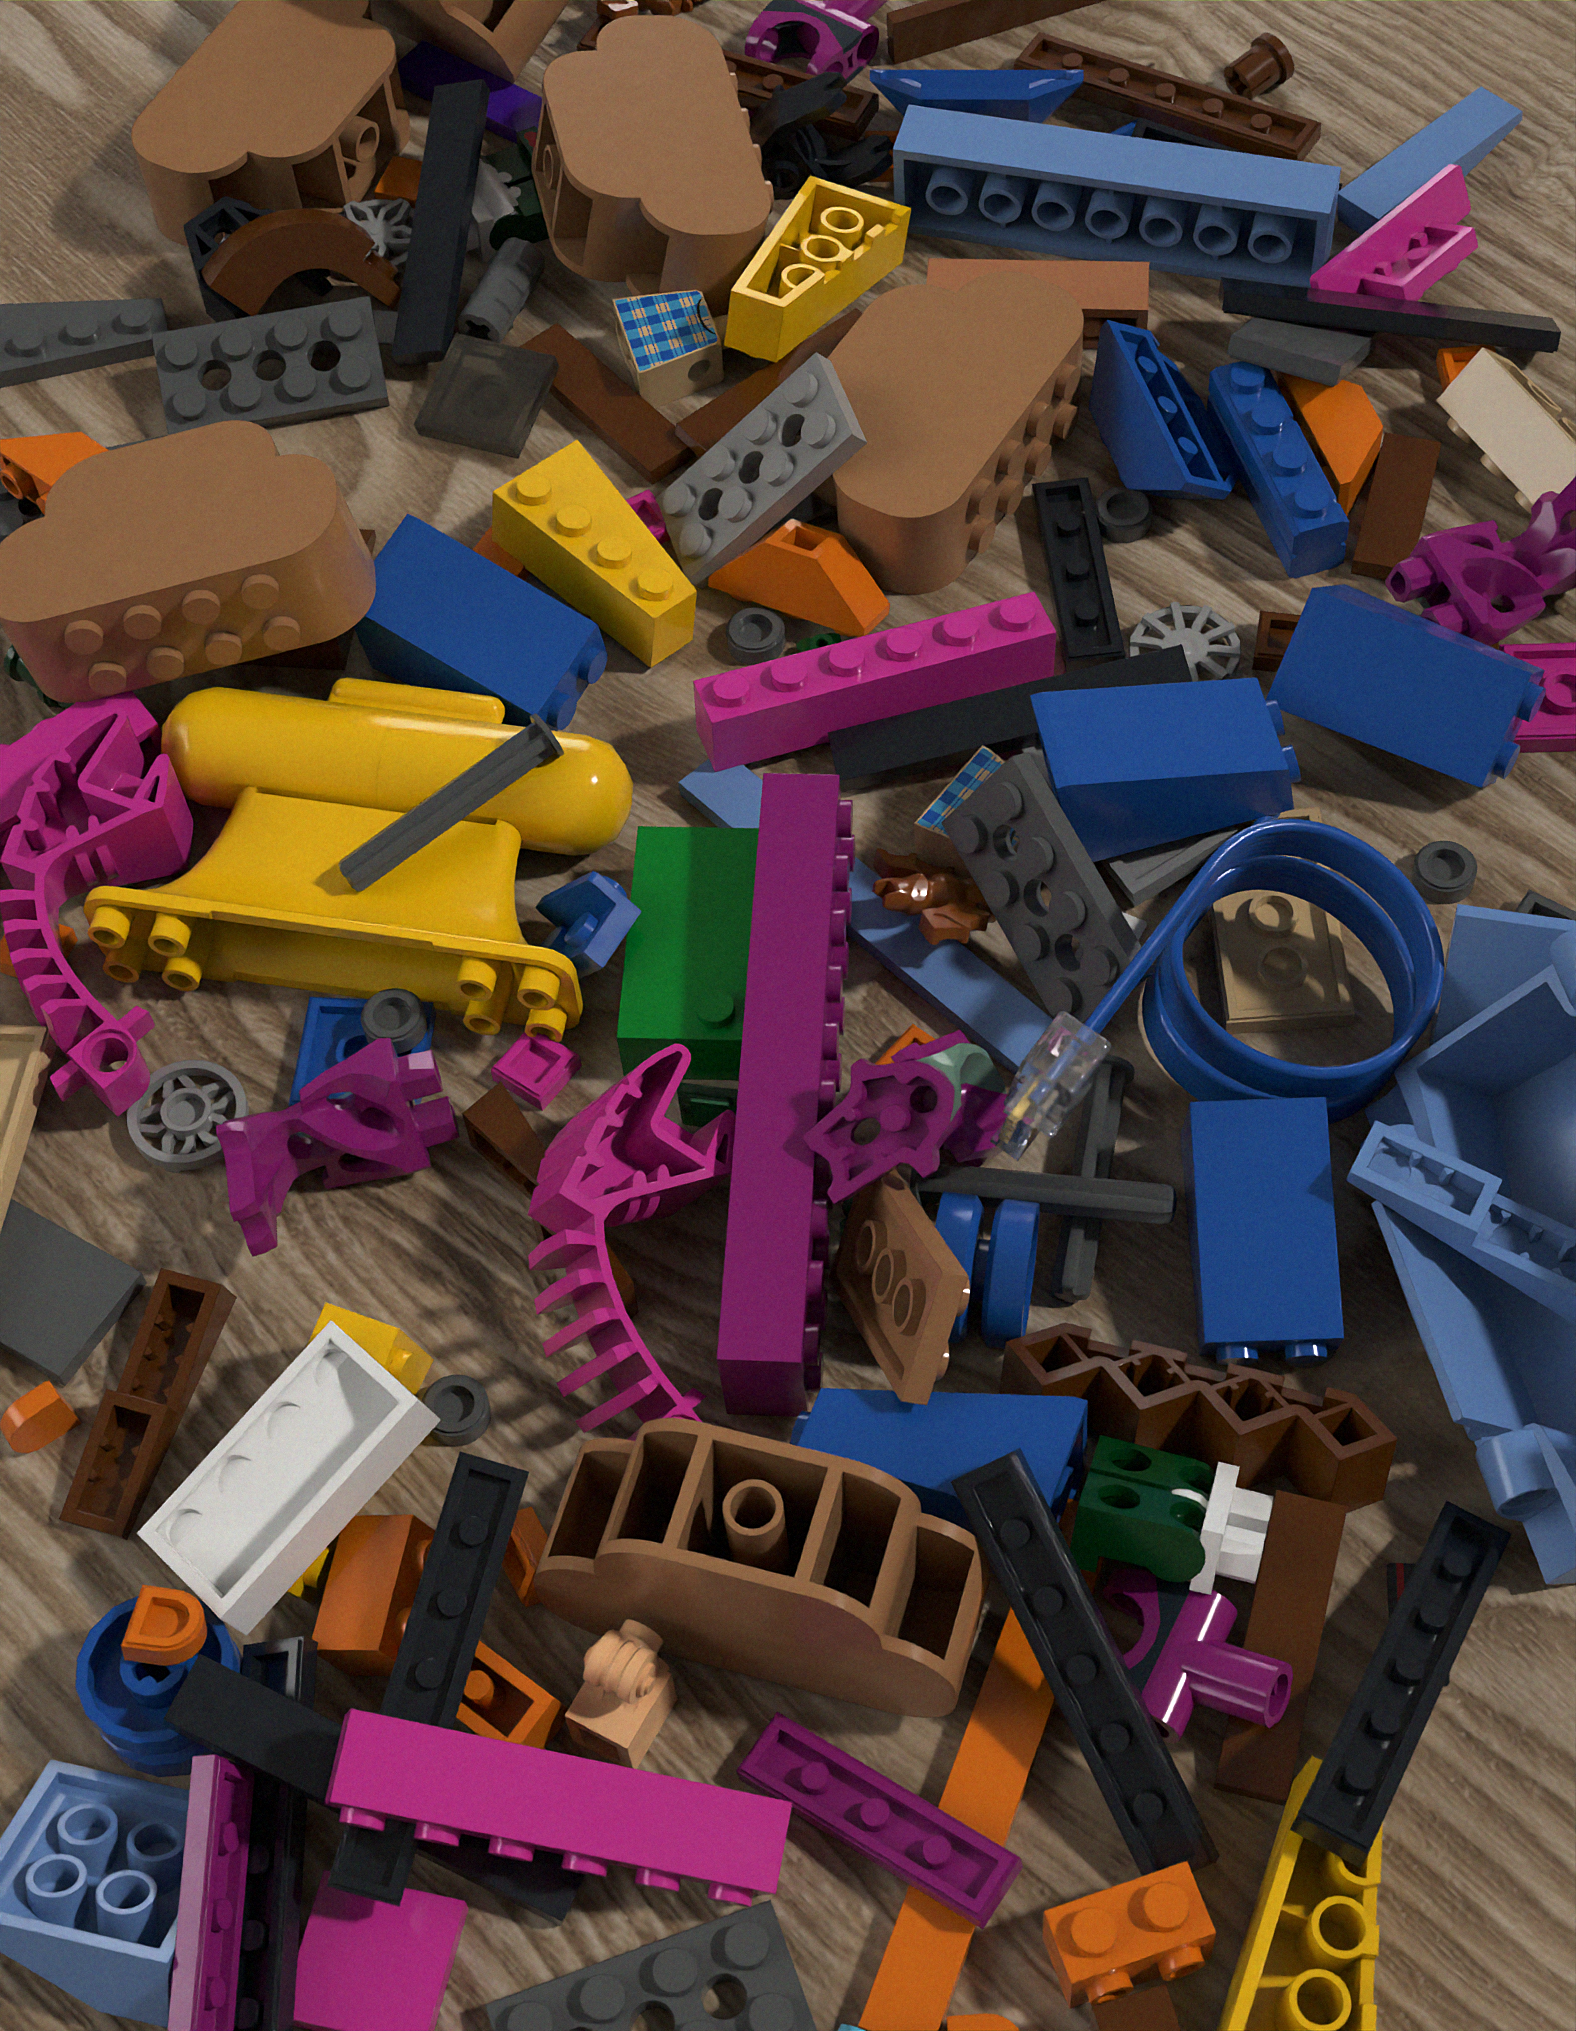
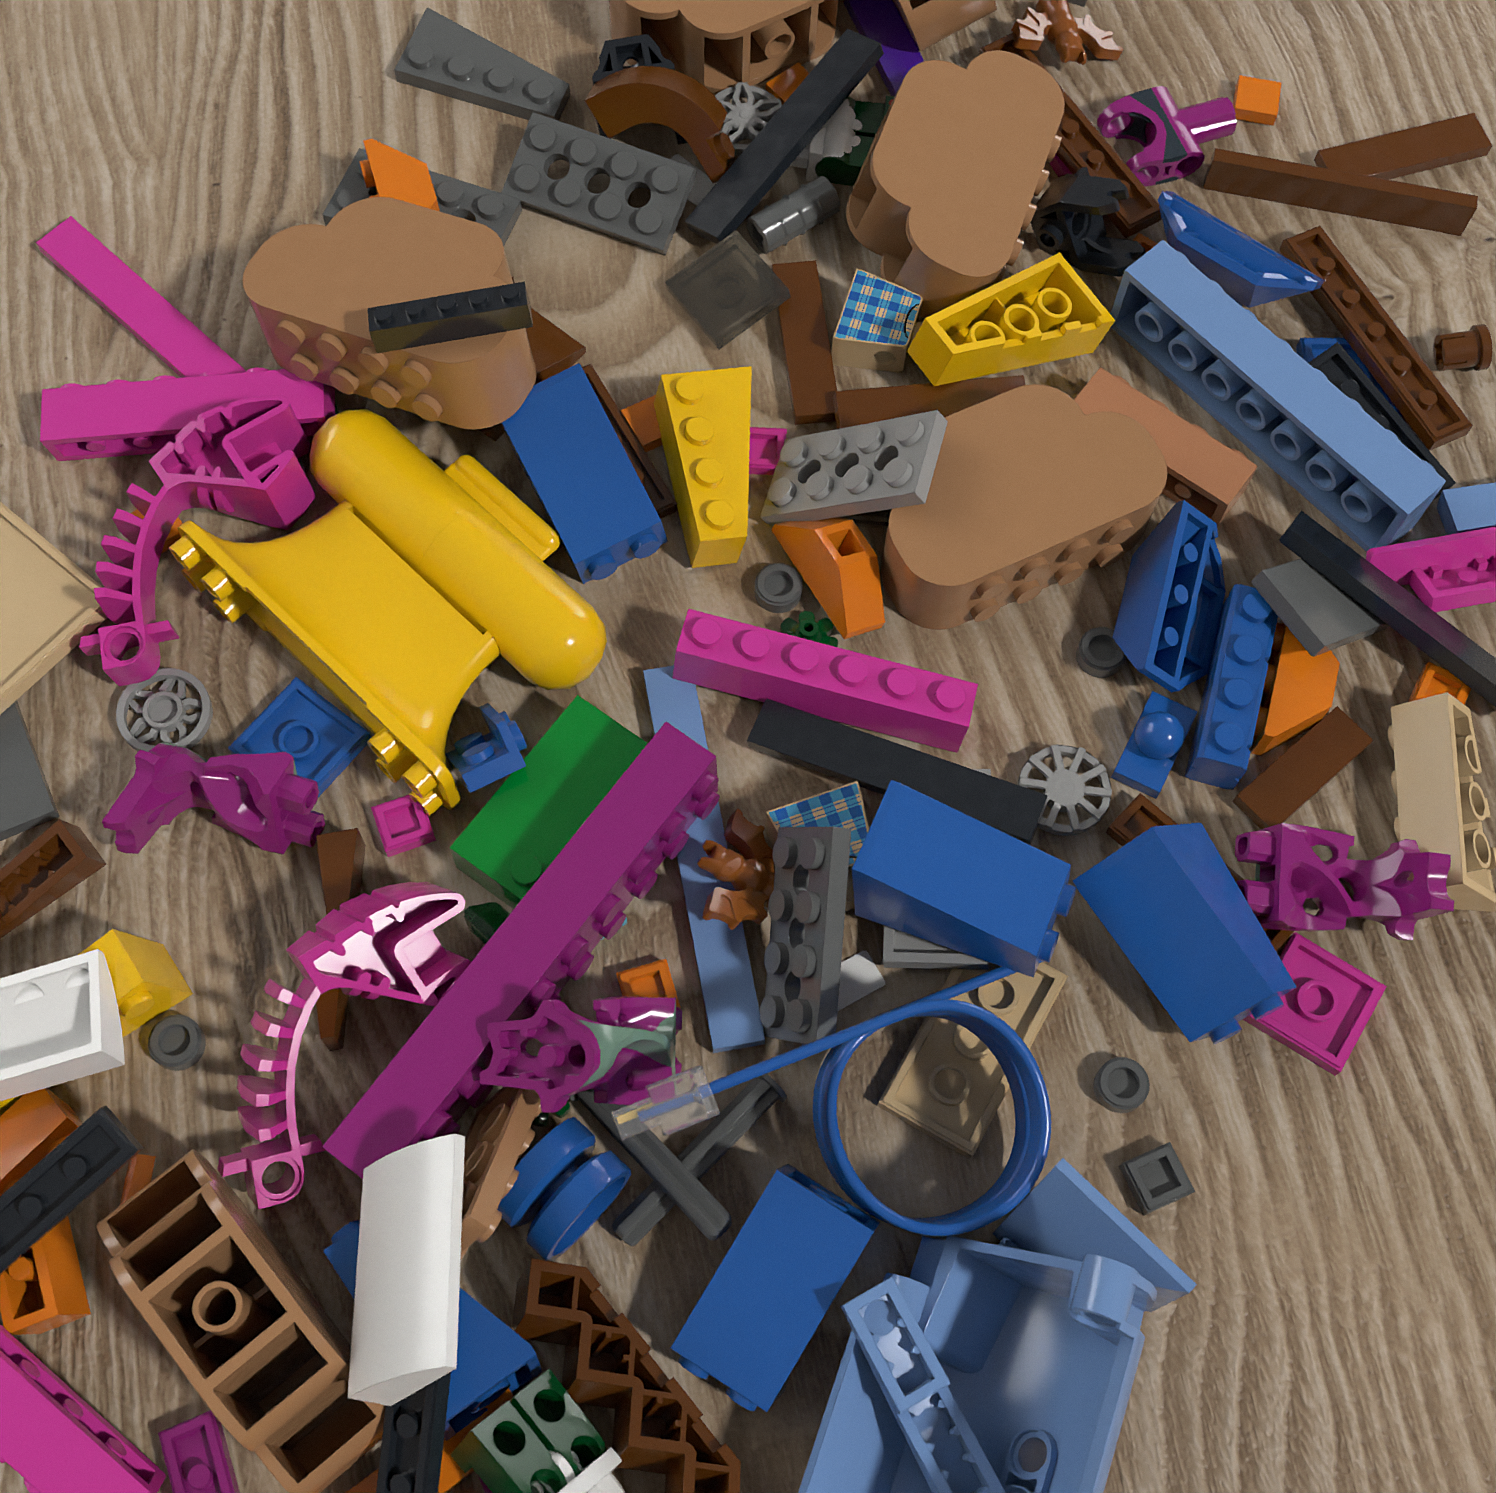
camera: 25 degrees right, 10 degrees up
(267, 508) = (450, 317): none -> black piece
(395, 1015) = (330, 732): dark grey tile -> none
(450, 804) = (454, 605): dark grey axle -> none
(623, 1695) = (113, 1337): light nougat brick -> none
(913, 1374) = (408, 1271): none -> white slope
(1077, 573) = (1033, 681): black tile -> none
(1239, 564) = (1154, 744): none -> blue tile

